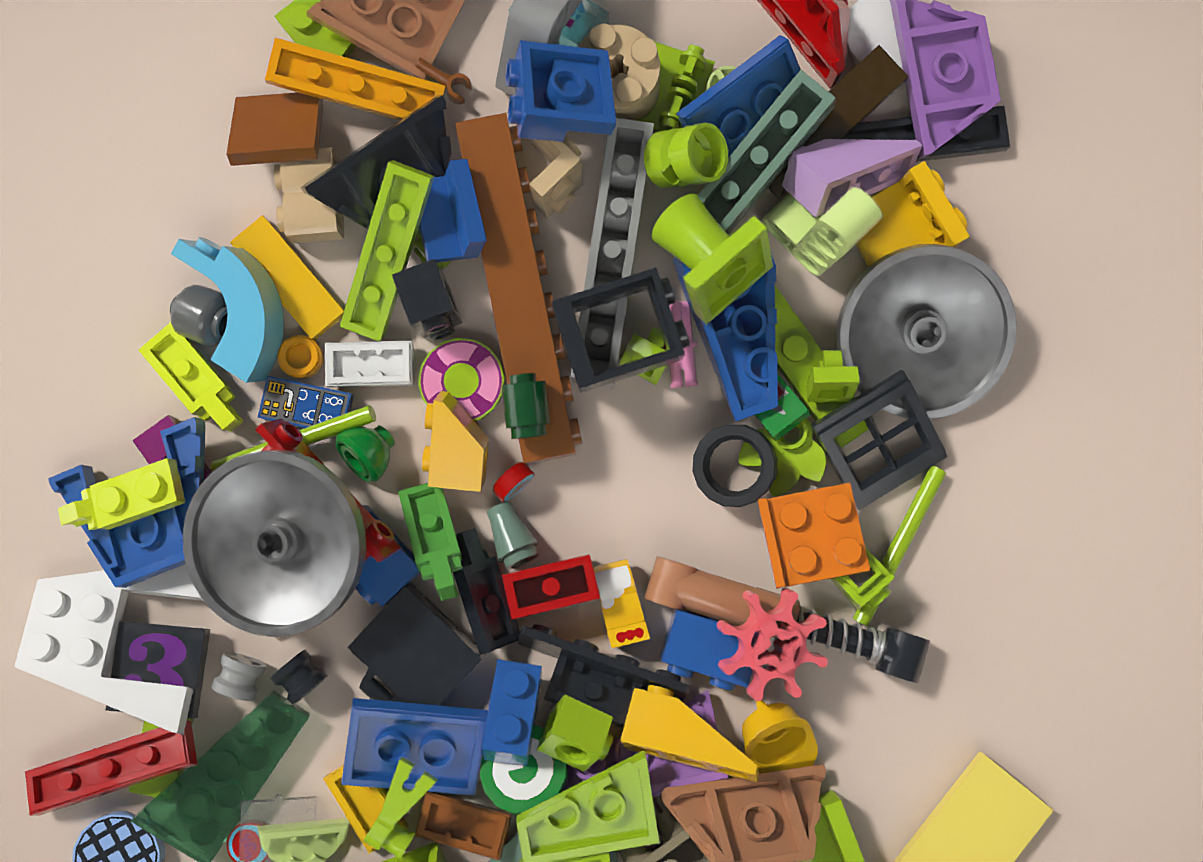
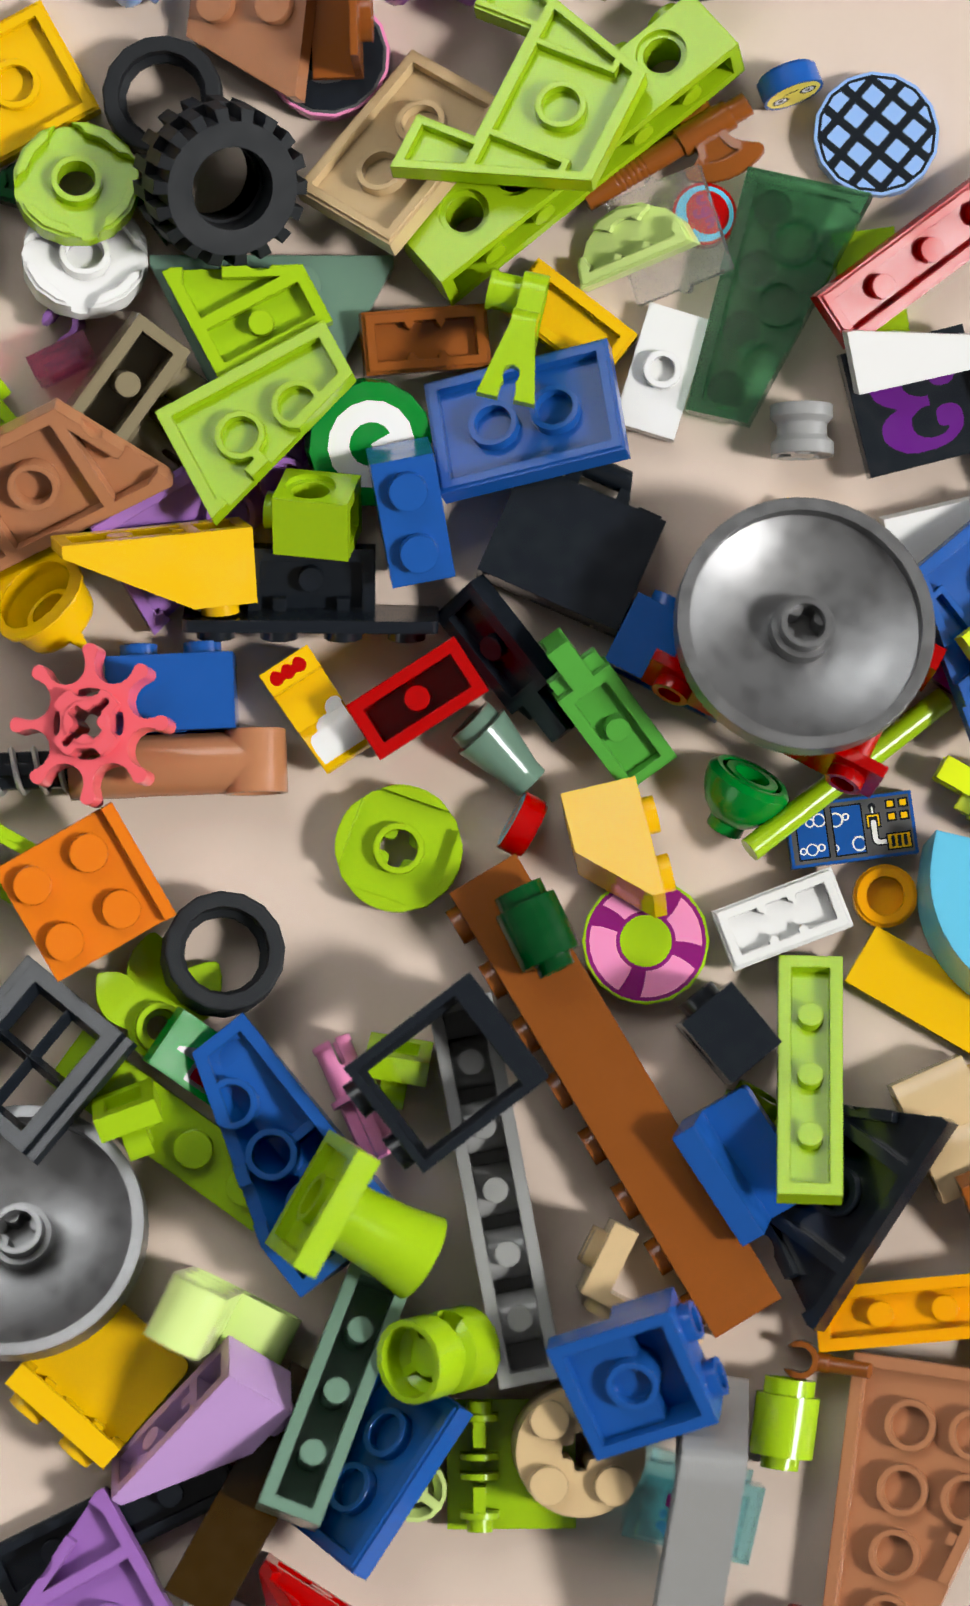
camera: 160 degrees right, 0 degrees up
(298, 677) = (719, 457): black wheel -> none
(315, 748) = (662, 371): none -> white plate
(481, 51) = (784, 1422): none -> lime brick
(597, 469) = (382, 816): none -> lime plate

